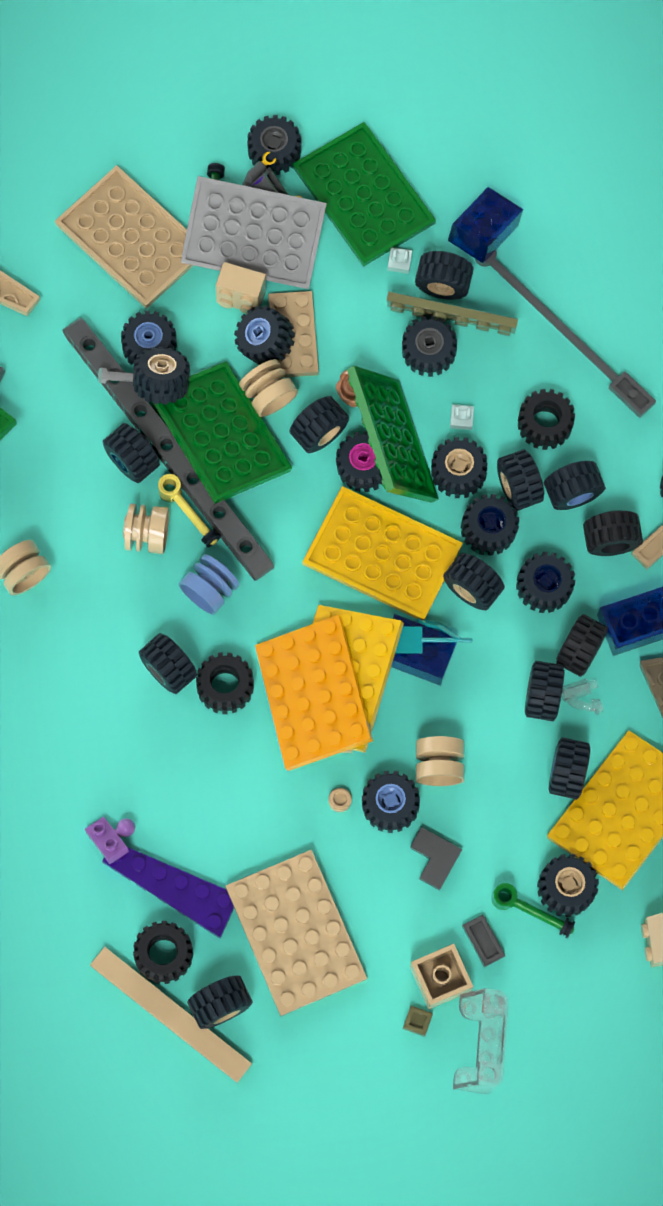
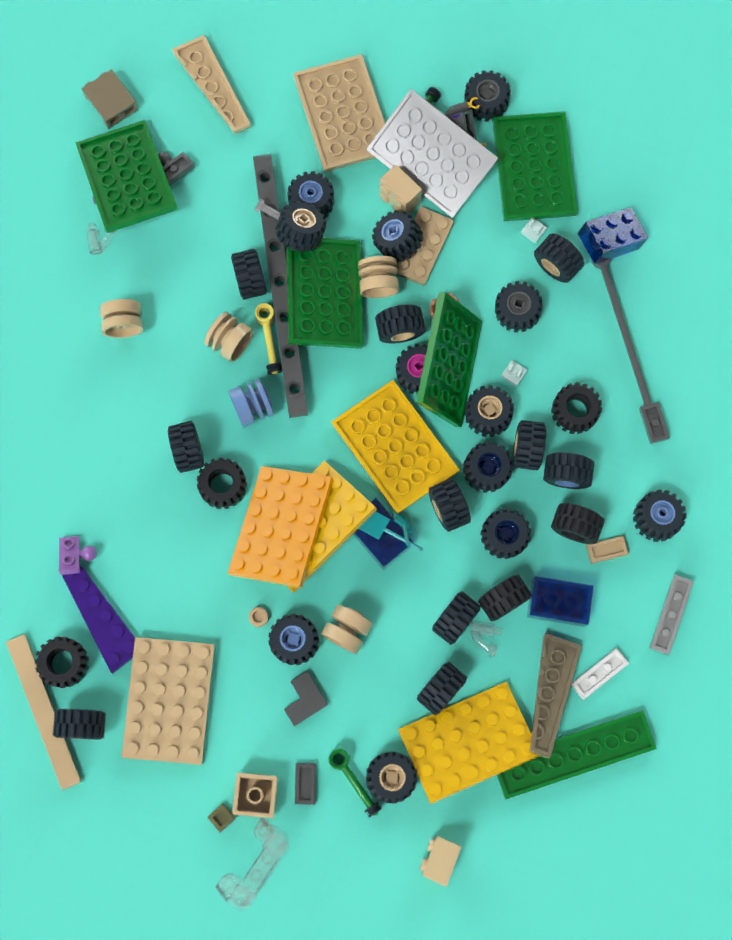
camera: 30 degrees right, 5 degrees up
(461, 316) = (554, 295): olive plate -> none

